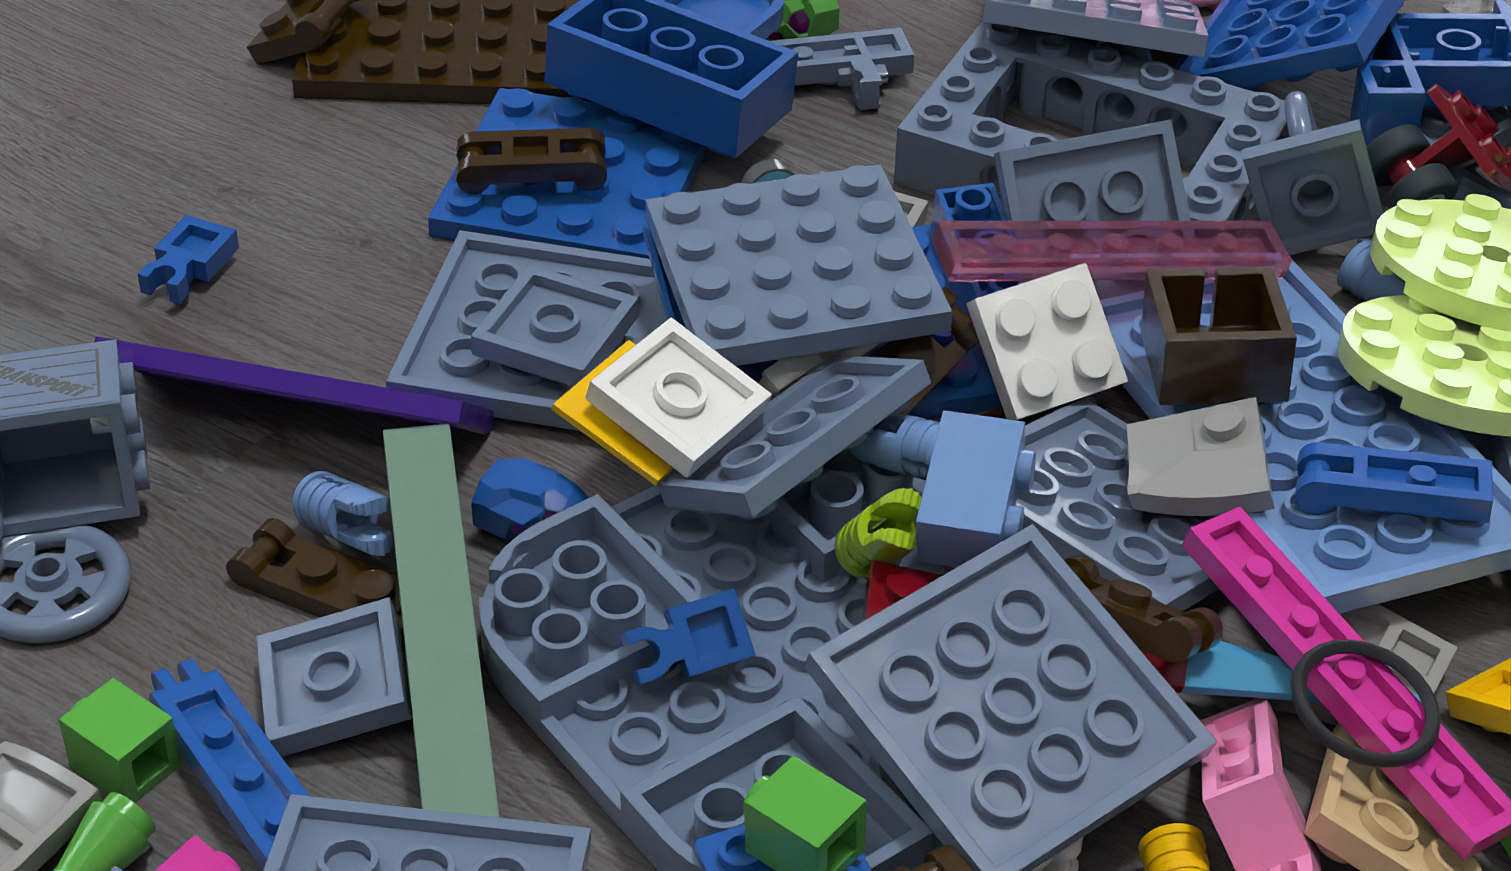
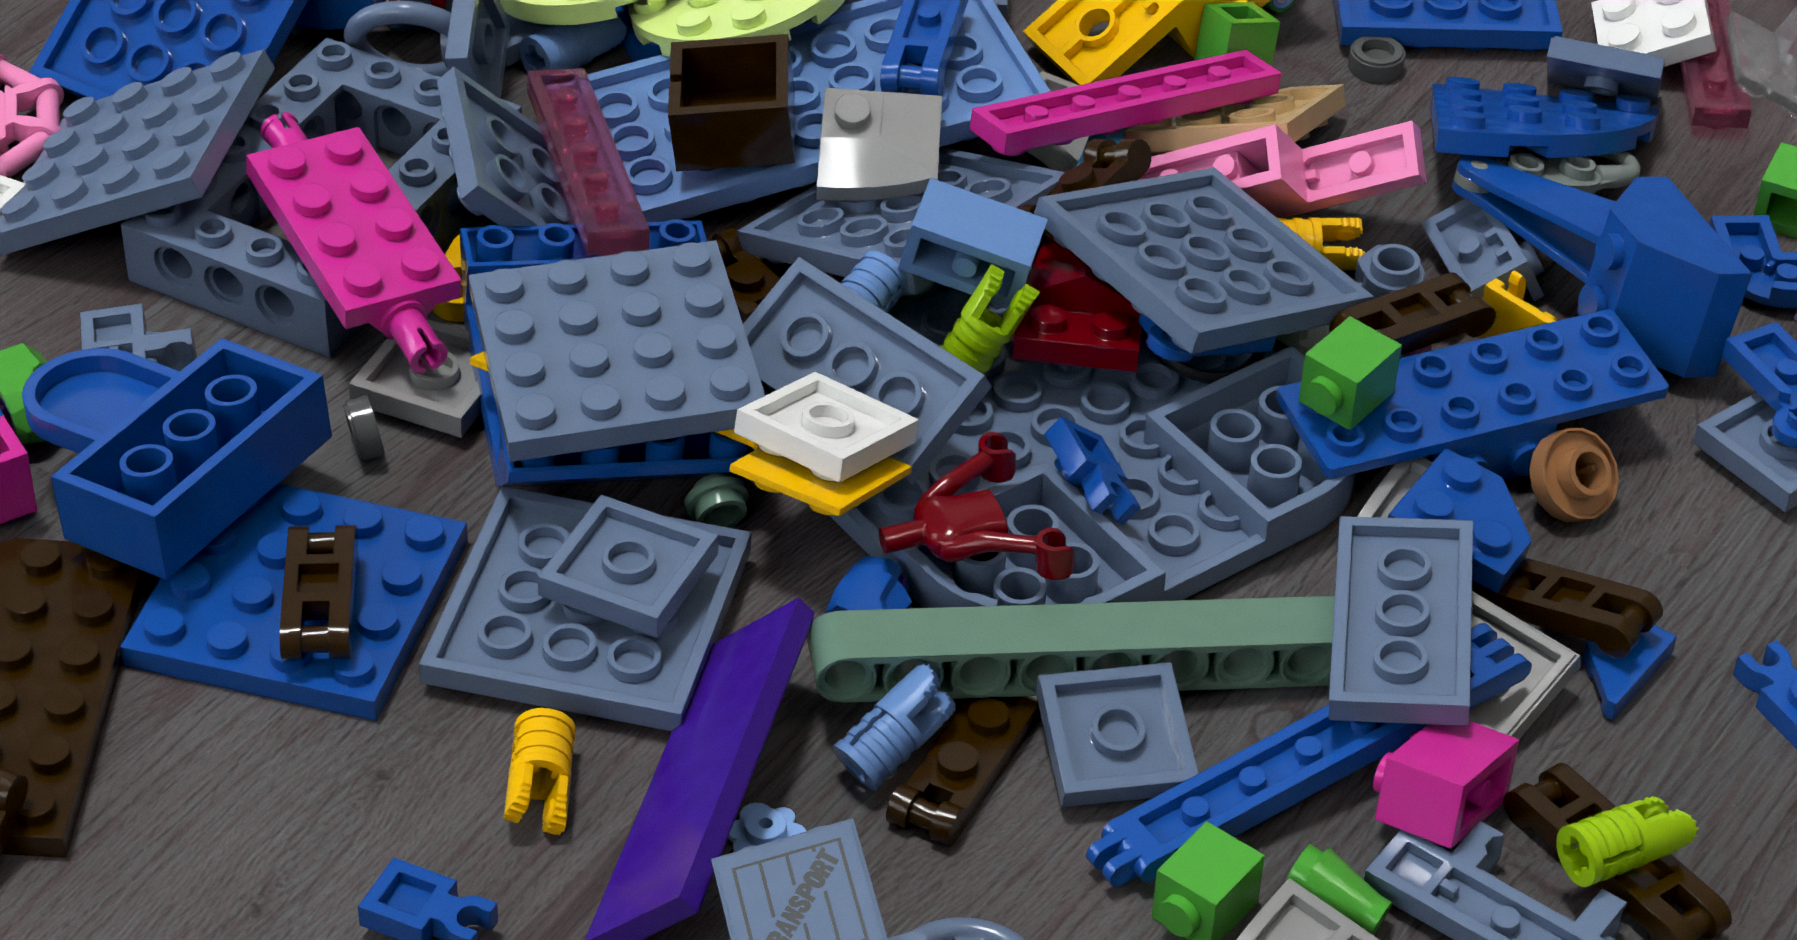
camera: 90 degrees left, 0 degrees up
(265, 461) = (762, 825): none -> light blue plant
(343, 310) = (541, 767): none -> yellow hinge
(588, 532) = (973, 521): none -> dark red piece
(978, 110) = (356, 234): none -> dark pink plate
(1047, 342) = (708, 212): white plate -> none
(1337, 745) = (1169, 110): black tyre -> none

